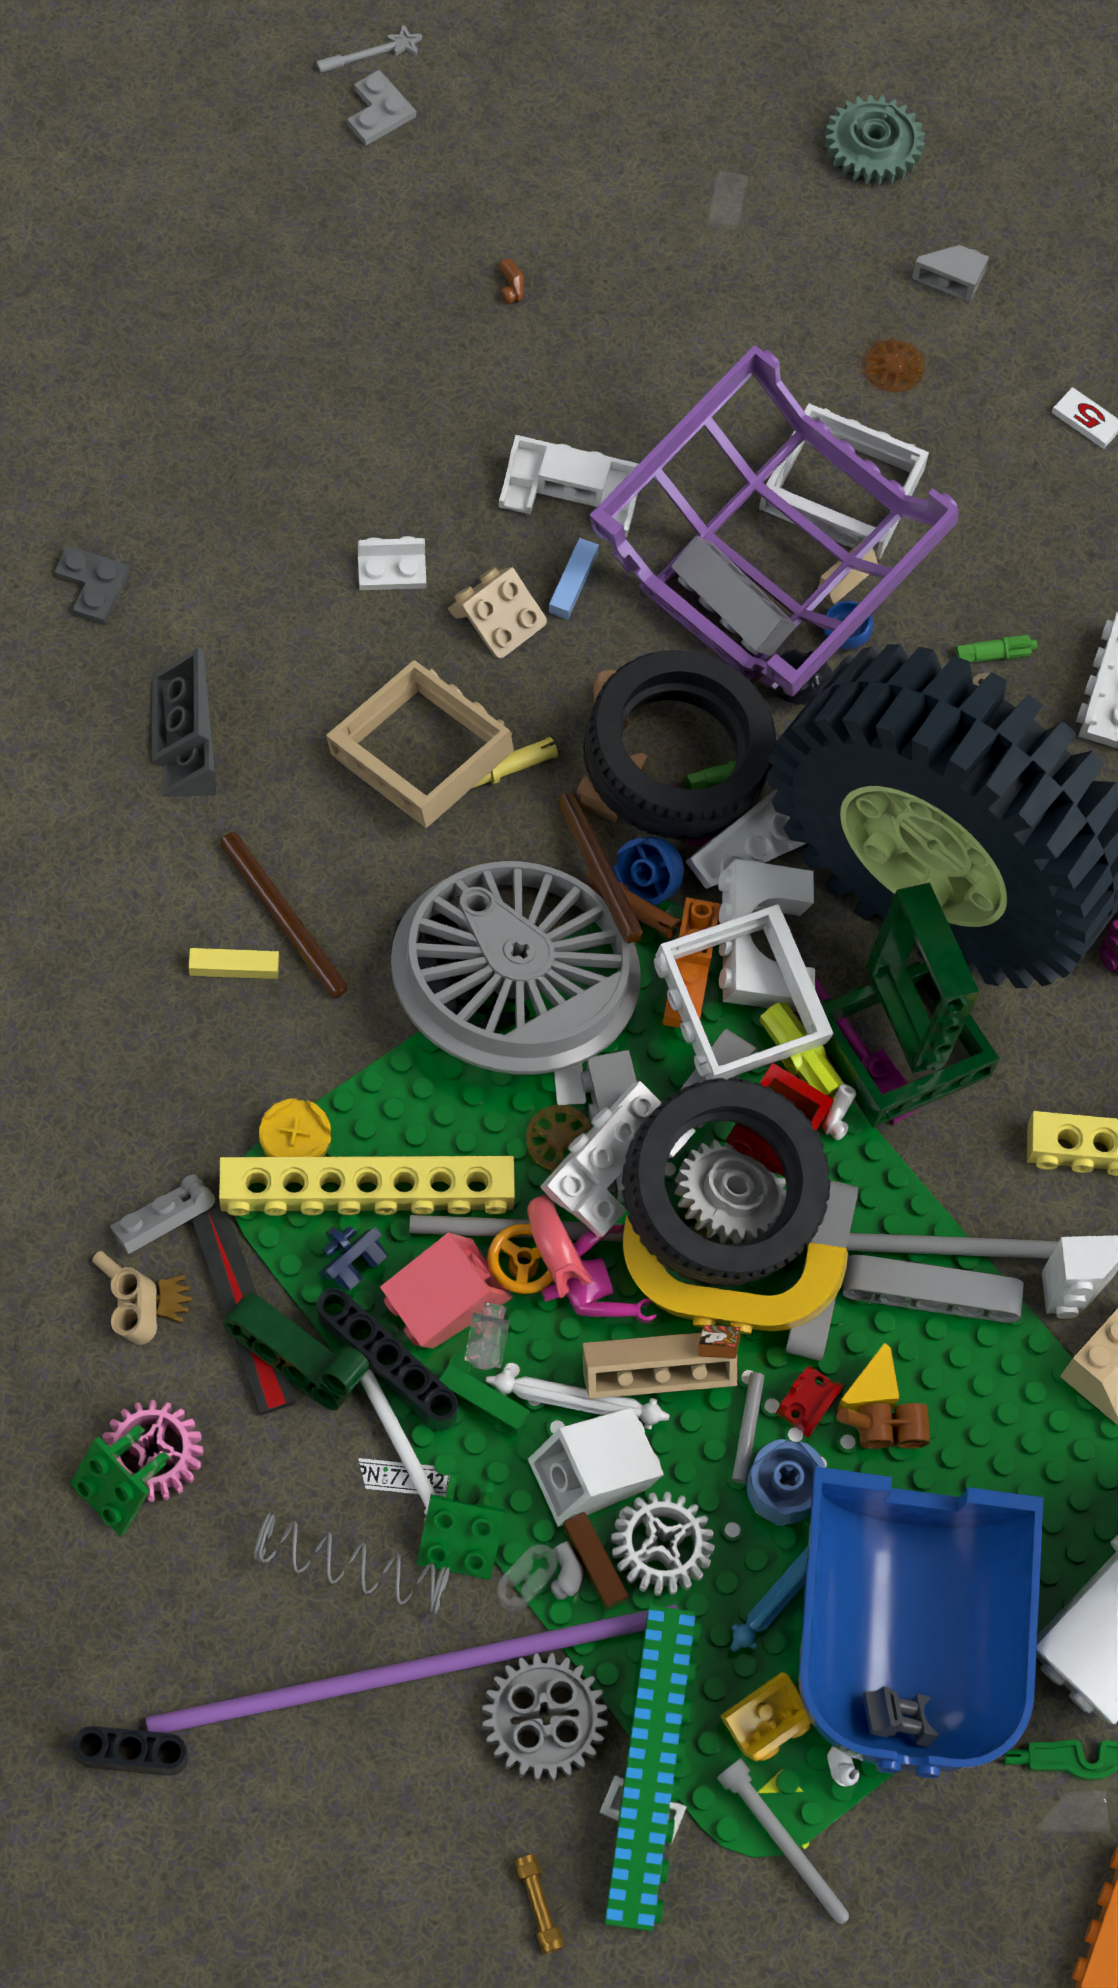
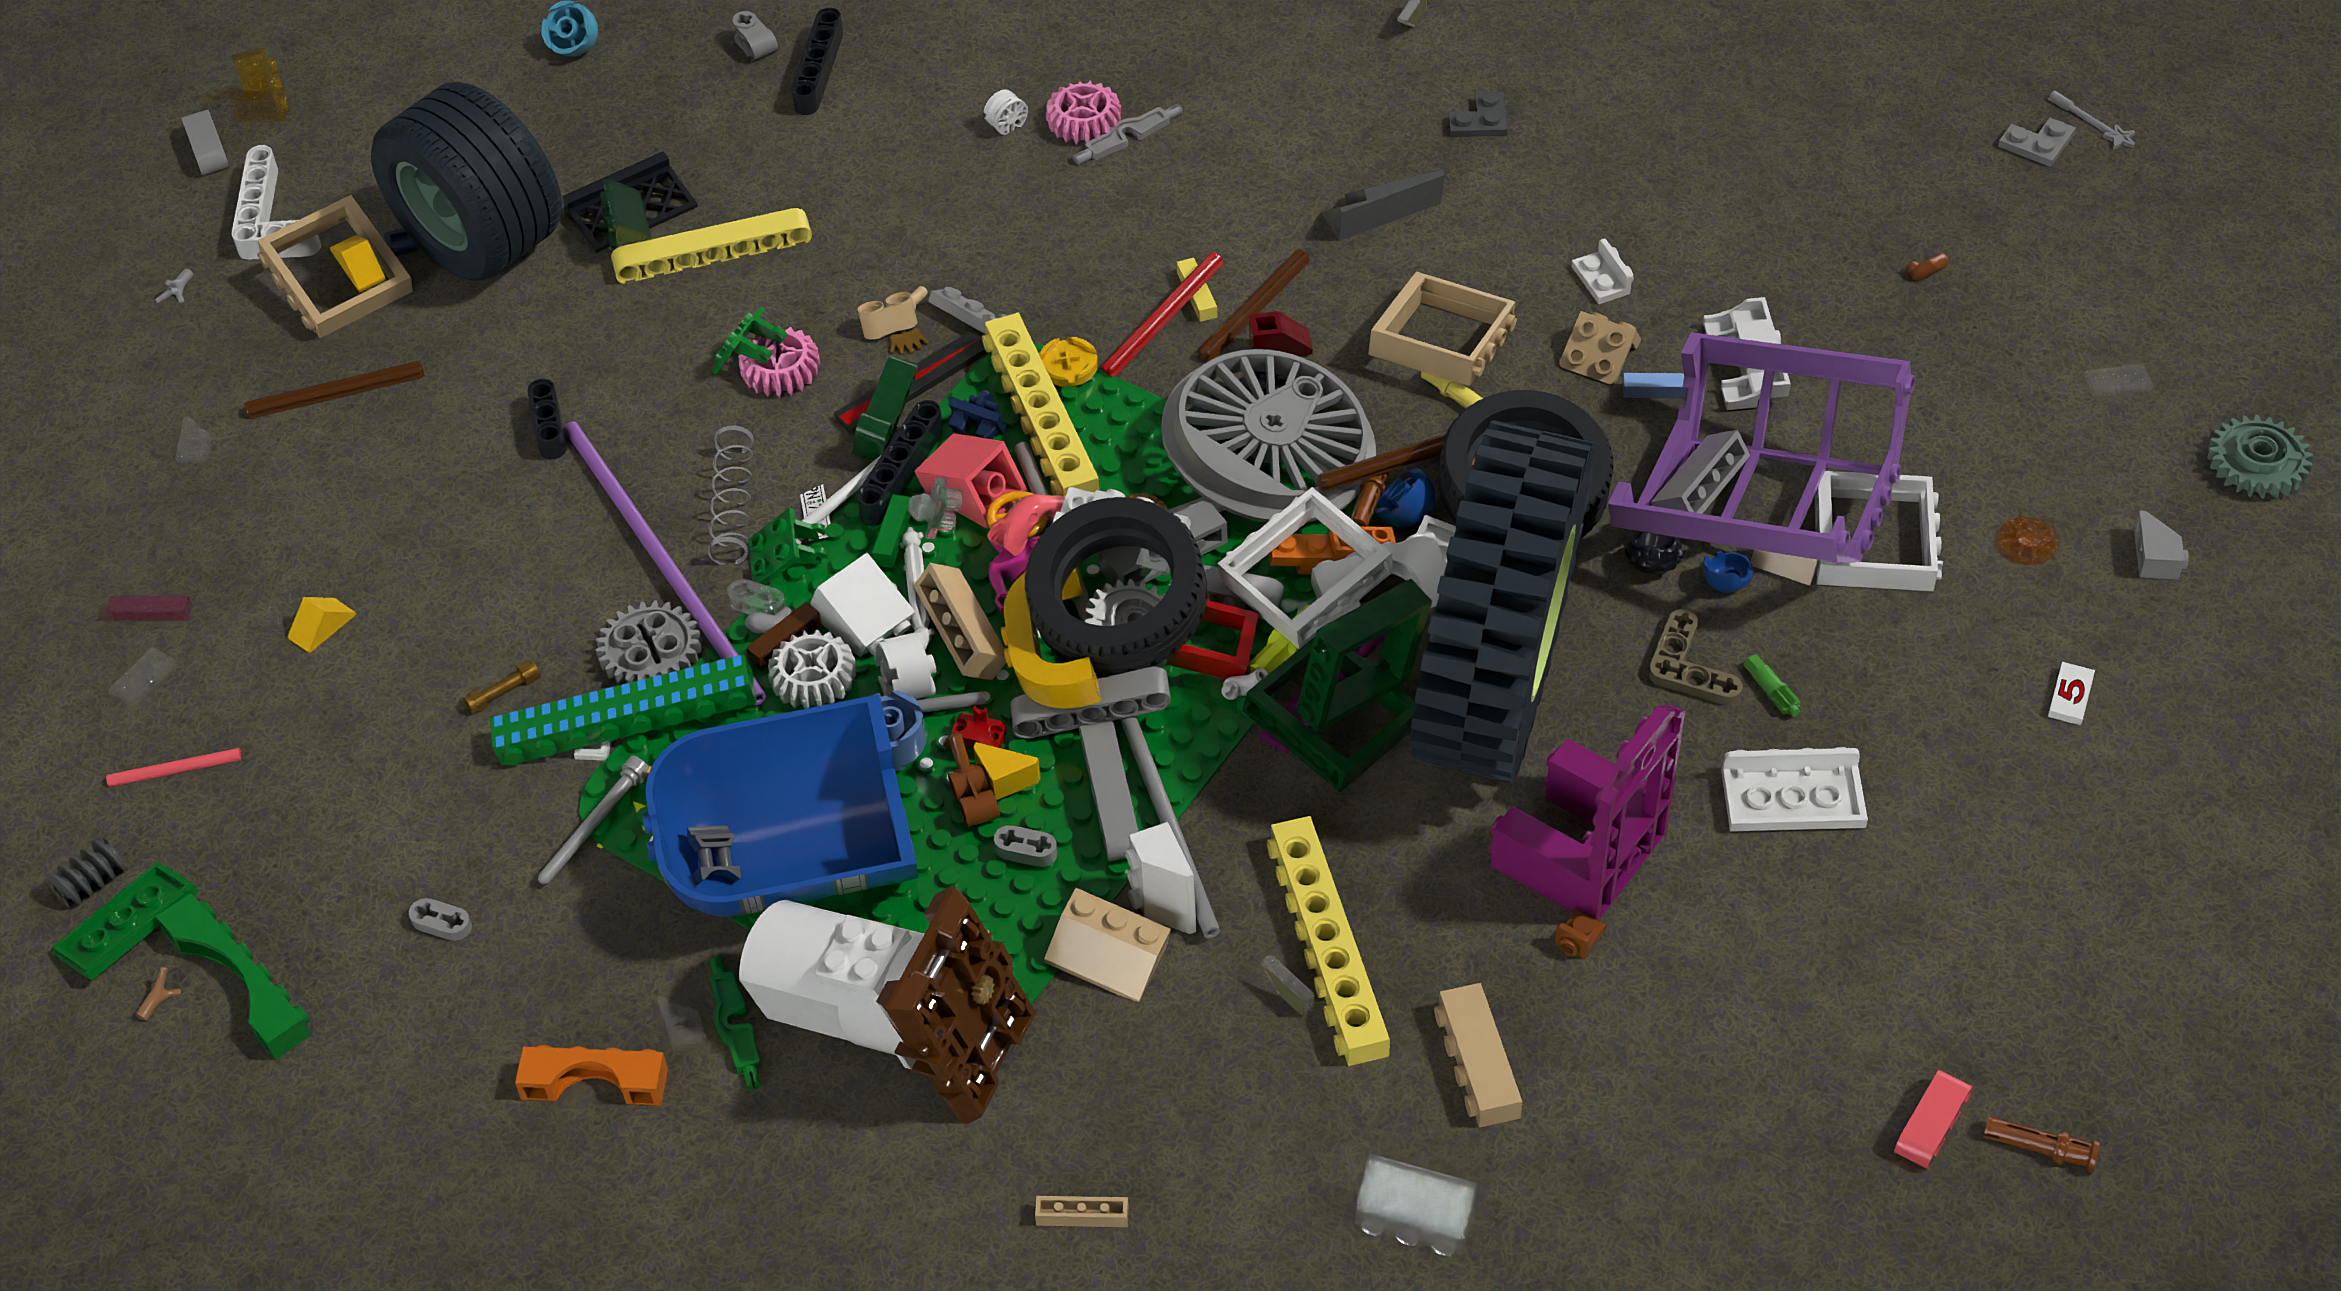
camera: 80 degrees right, 15 degrees down
(268, 1010) = (1162, 314): none -> red axle
(354, 909) = (1278, 333): none -> dark red slope
(710, 1441) = (905, 665): none -> white brick
(719, 1341) = (987, 639): dark orange tile -> none
(978, 1400) = (1025, 846): none -> light grey beam

